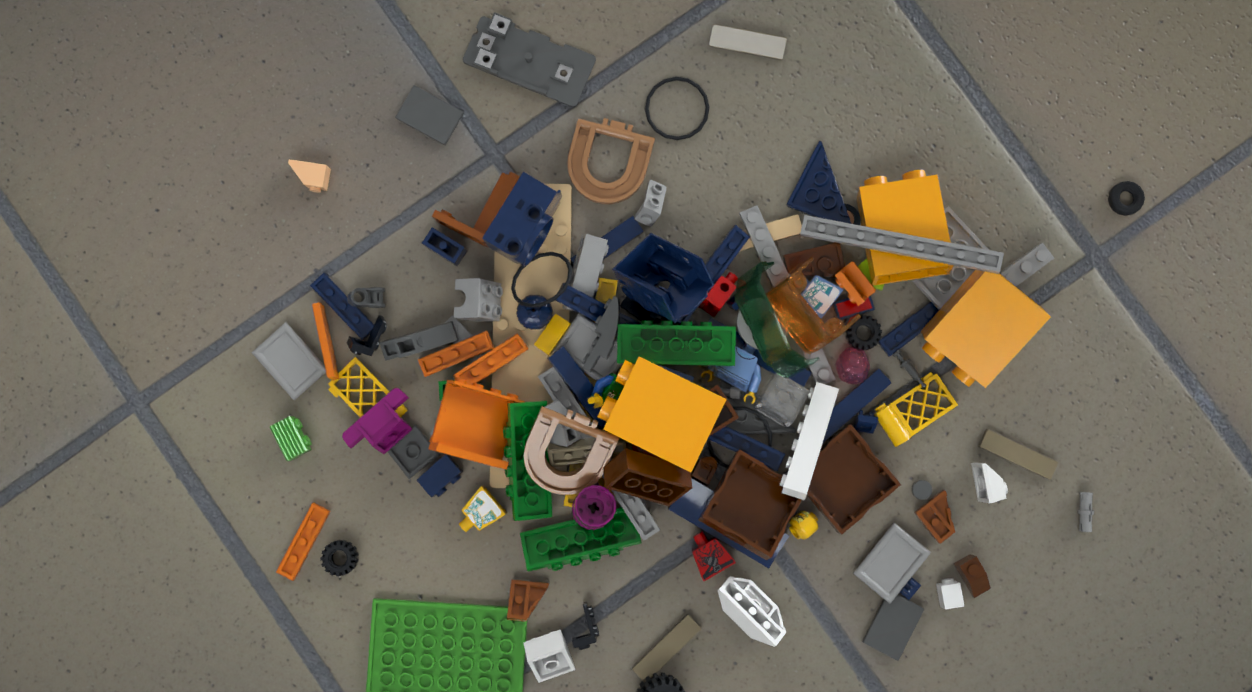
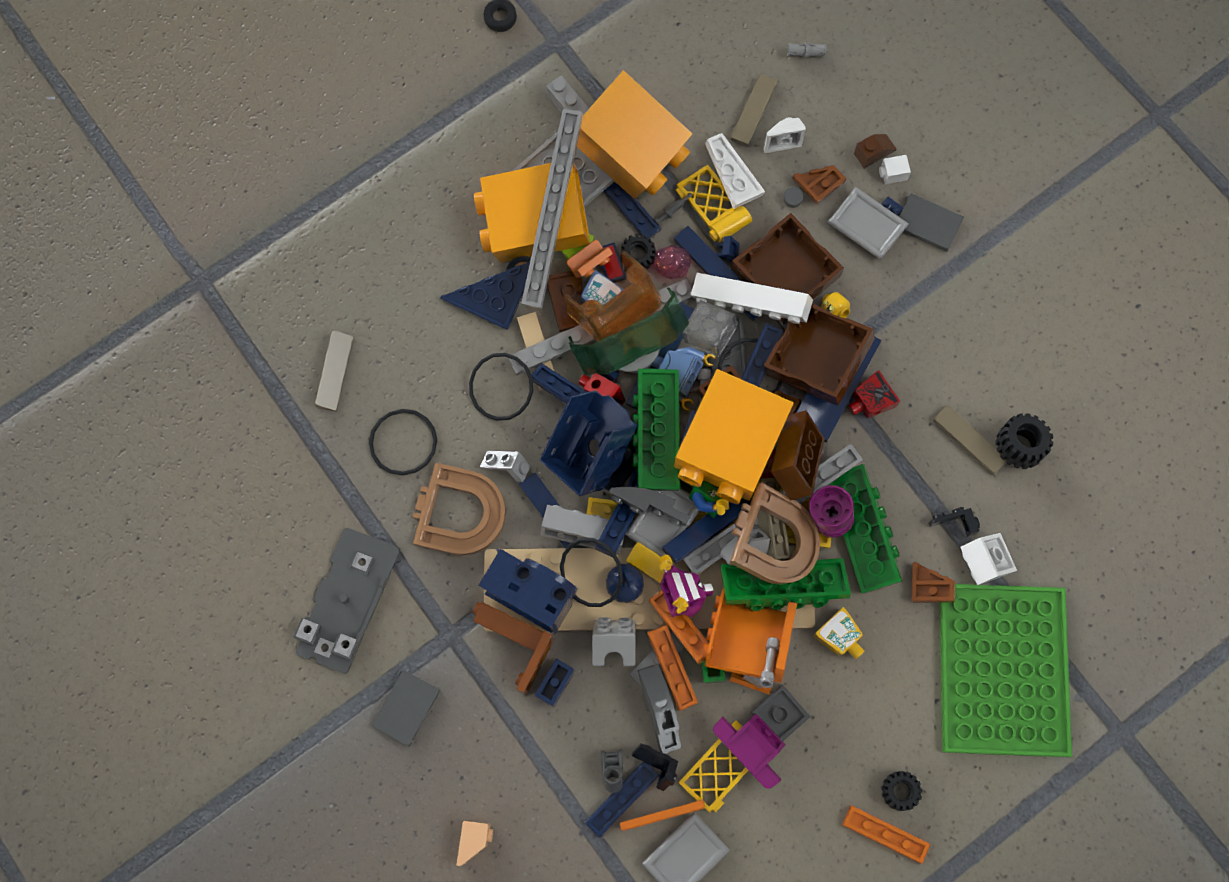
camera: 90 degrees left, 10 degrees down
(291, 438) = (772, 852): bright green brick -> none
(432, 436) = (767, 675): none -> light grey bar
(440, 475) = (806, 681): dark blue brick -> none
(522, 364) = (682, 589): none -> torso
(739, 222) = (530, 386): none -> black piece
(752, 610) = (926, 353): white wedge -> none
(943, 432) = (734, 174): none -> white wing

